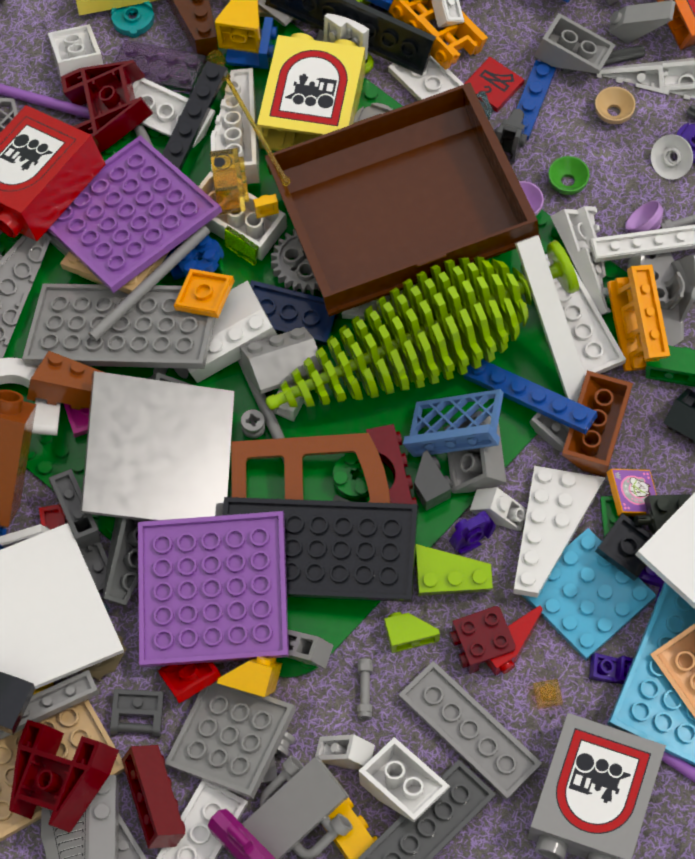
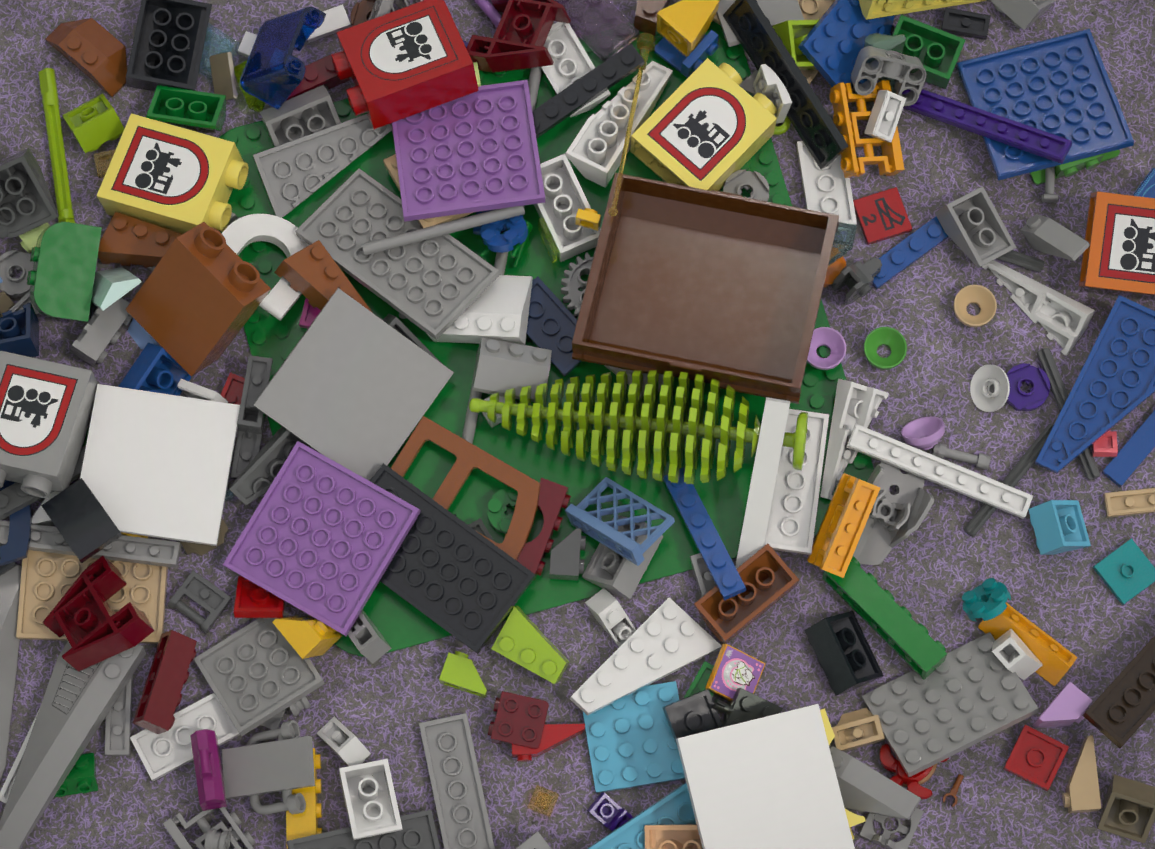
camera: 30 degrees right, 10 degrees up
(204, 293) = (480, 269): light orange tile -> none
(229, 180) = (567, 177): clear yellow brick -> none
(253, 429) = (452, 414): light grey wheel -> none
(365, 669) = (407, 683): light grey bar -> none
(471, 532) = (570, 624): dark purple plate -> none

